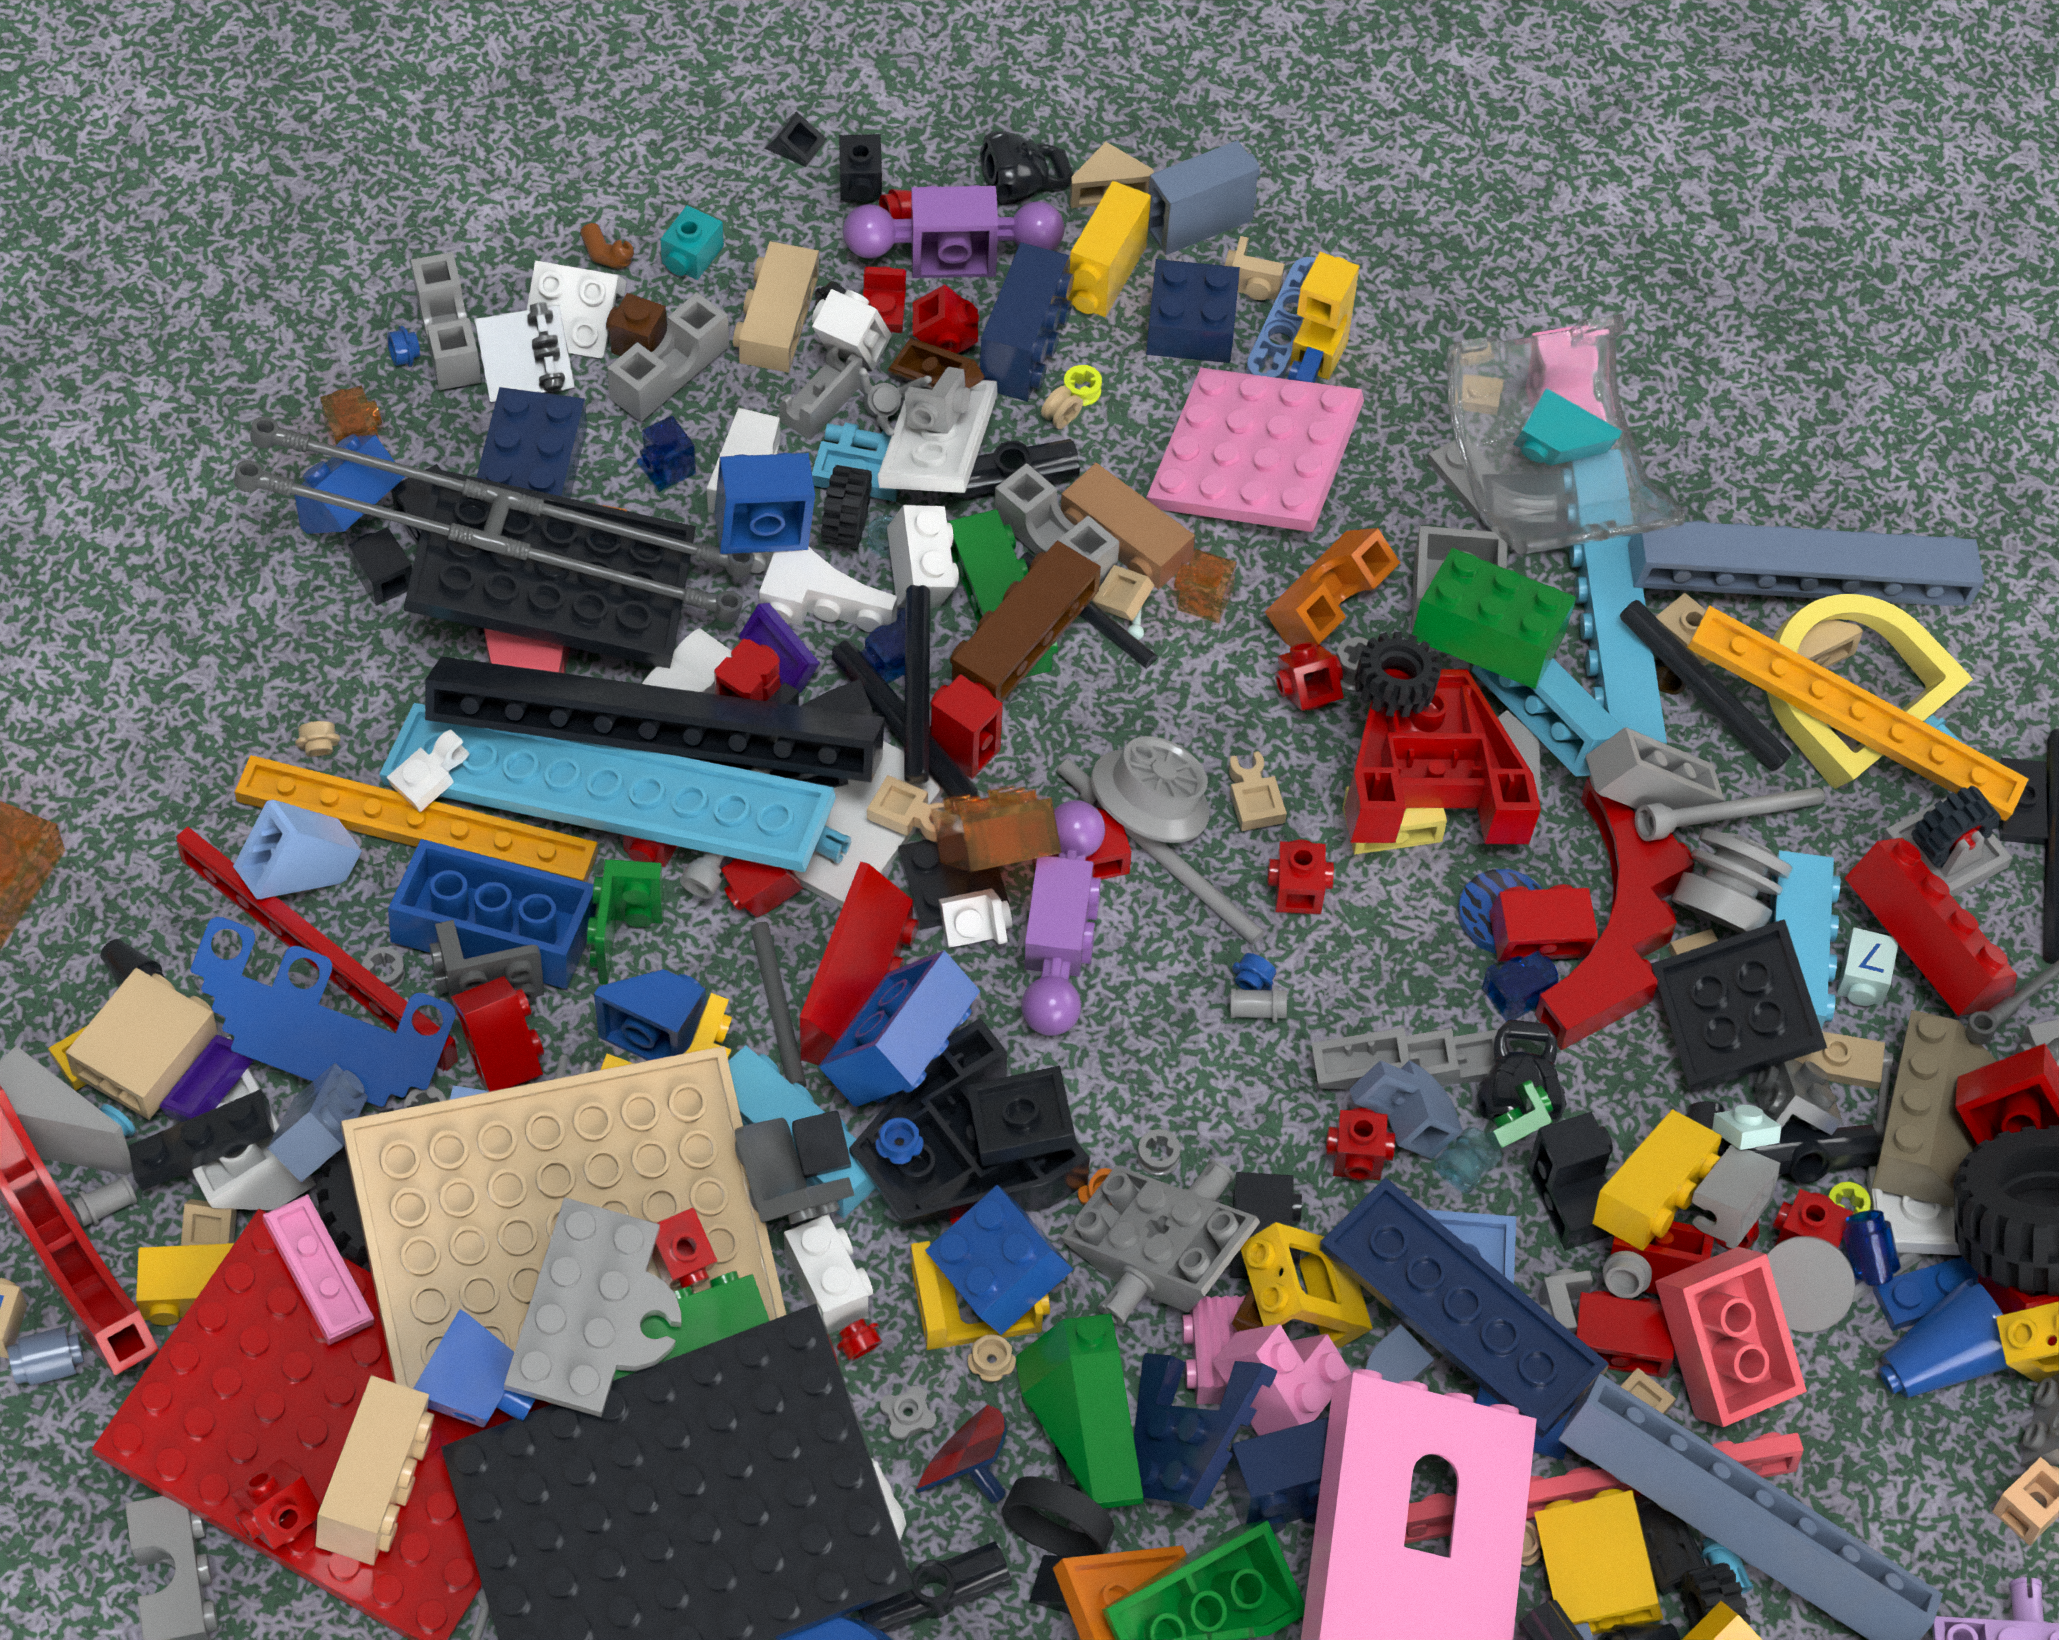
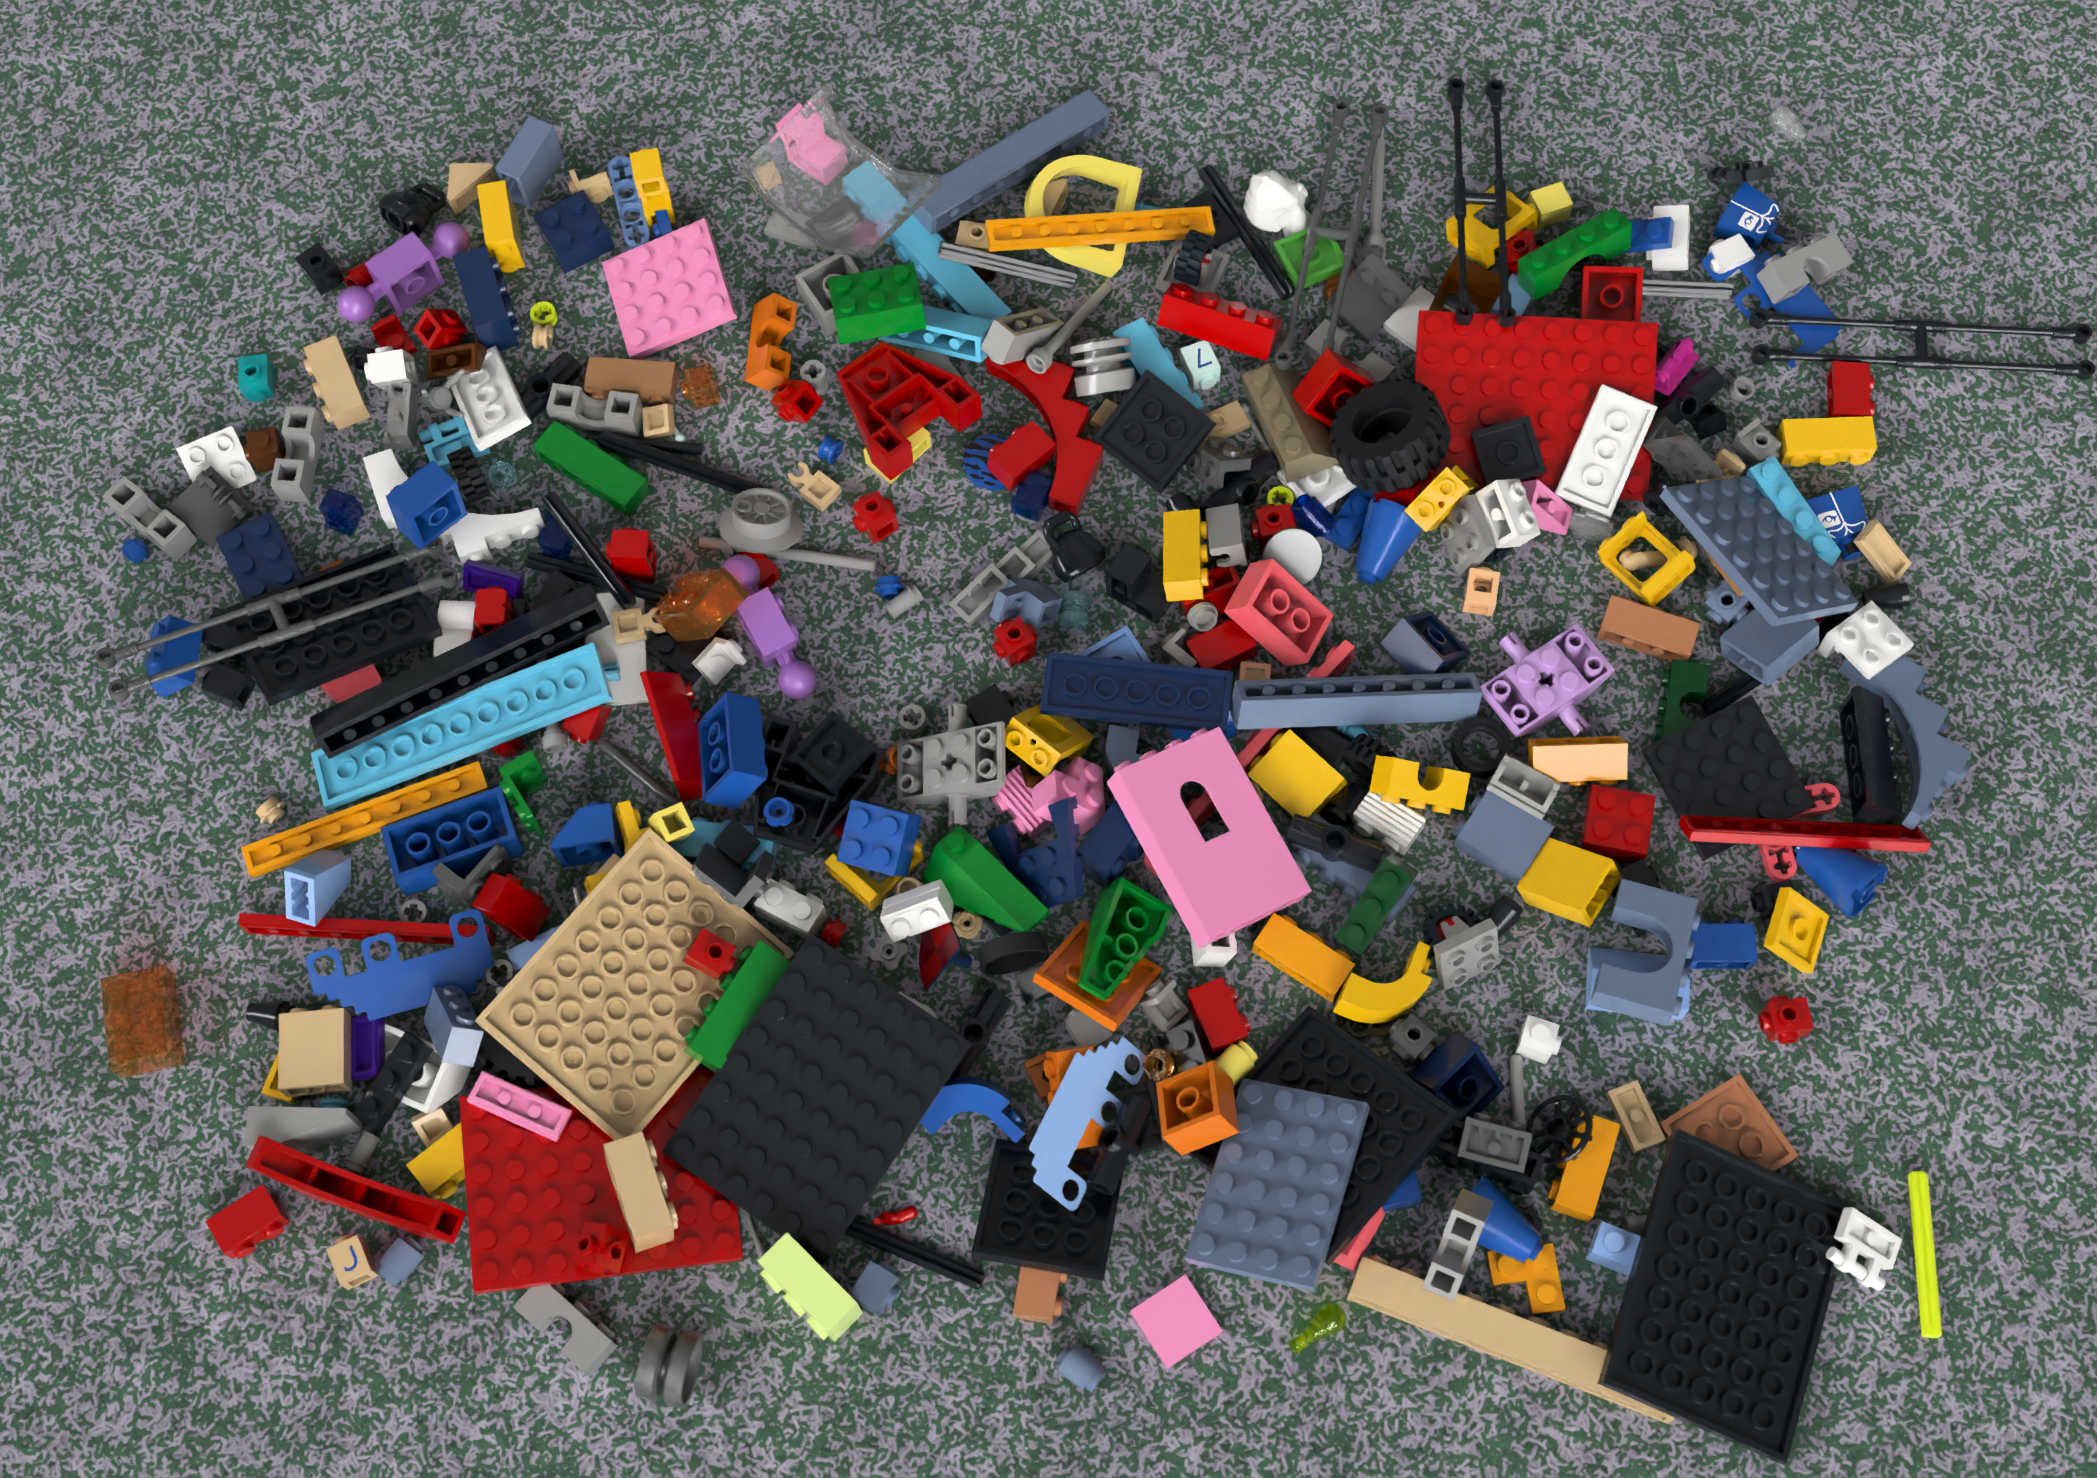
camera: 30 degrees left, 10 degrees up
(349, 413) = (139, 613): clear orange brick -> none
(427, 776) = (354, 791): white plate -> none
(470, 1374) = (652, 1102): torso -> none
(591, 1309) = (691, 1022): light grey plate -> none
(613, 256) = (216, 414): dark orange arm -> none
(757, 1065) = (671, 824): none -> light yellow brick
(796, 140) = (267, 276): black slope -> none
(922, 552) = (532, 473): white brick -> none
(941, 406) = (479, 383): light grey bracket -> none
(979, 1383) = (917, 910): none -> white brick
(1027, 620) = (623, 473): reddish brown brick -> none
(1028, 1459) = (967, 931): none -> tan plate
(1123, 680) = (675, 463): none -> black axle
(1309, 762) = (830, 449): none -> blue bush
(1394, 692) = (846, 357): black tyre -> none
(1514, 1124) = (1091, 576): bracket -> none
(1563, 432) = (832, 171): teal slope -> none
(1746, 1127) = (1206, 495): light aqua plate -> none
(1904, 1515) = (1424, 645): none -> dark blue slope

